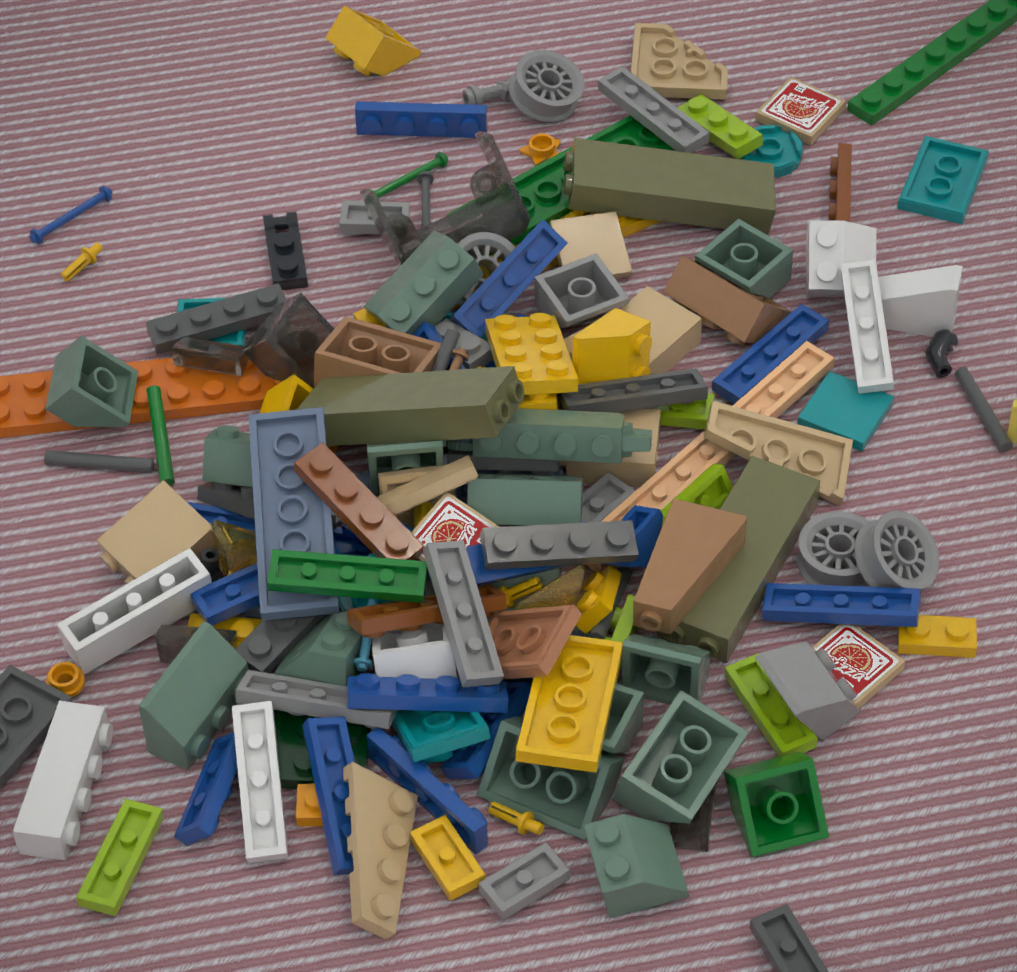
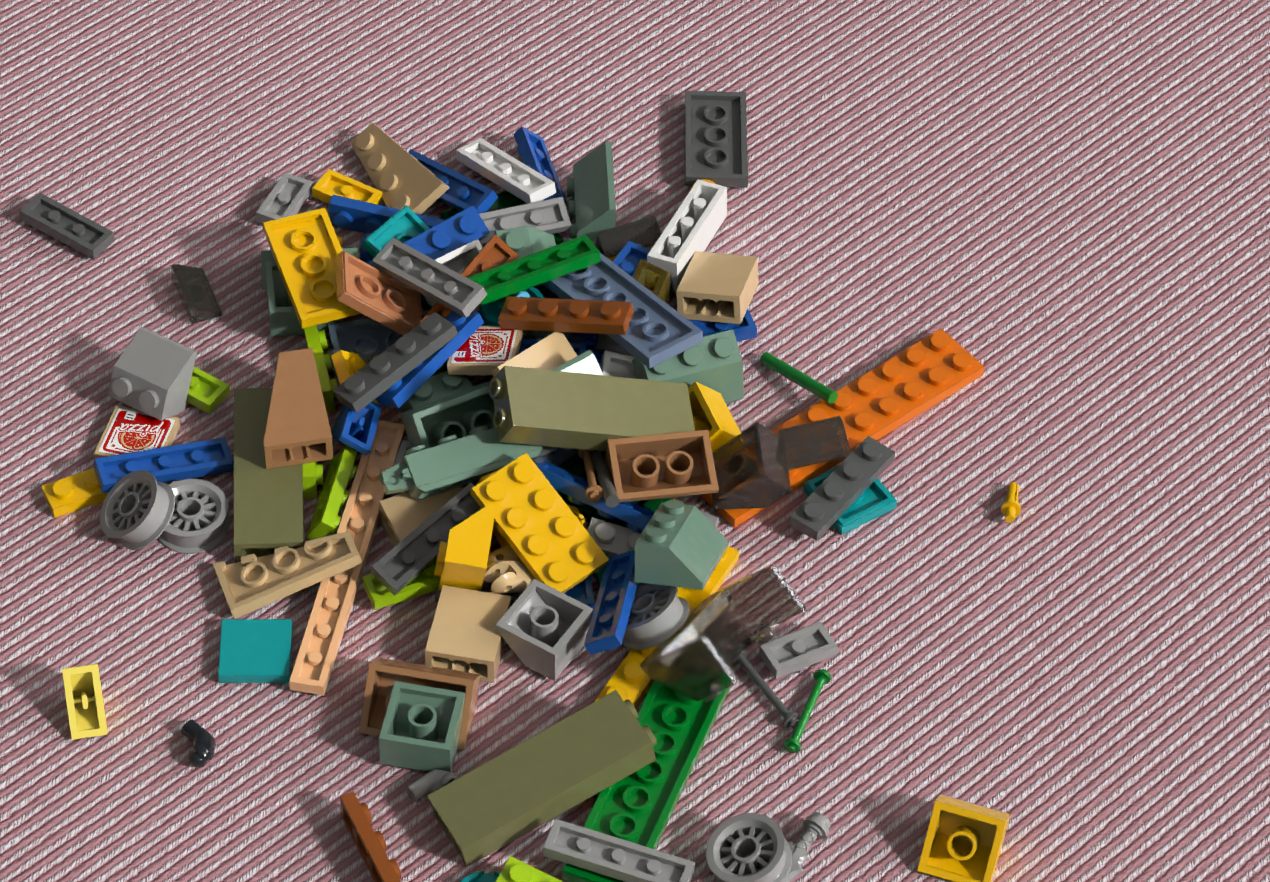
camera: 145 degrees right, 0 degrees up
(62, 781) = (643, 132): white brick -> none
(91, 387) = (875, 367): sand green slope -> none
(99, 461) = (833, 350): dark grey bar -> none
(105, 193) = (1058, 573): blue axle -> none
(120, 857) = (565, 110): lime plate -> none
(285, 251) = (851, 589): black plate -> none
(420, 119) = (841, 770): blue plate -> none
(541, 148) = (709, 799): light orange plate -> none
(594, 235) = (574, 689): tan tile -> none
(635, 863) = (214, 231): sand green slope -> none
(664, 668) = (259, 348): sand green slope -> none
(679, 762) = (220, 298): sand green slope -> none
(769, 352) = (349, 669): blue plate -> none
(777, 803) = (147, 306): green slope -> none
(829, 246) = (336, 766): white slope -> none
(867, 326) = (271, 700): white plate -> none
(921, 300) = (243, 762): white slope -> none
(983, 409) = (137, 708): dark grey bar -> none

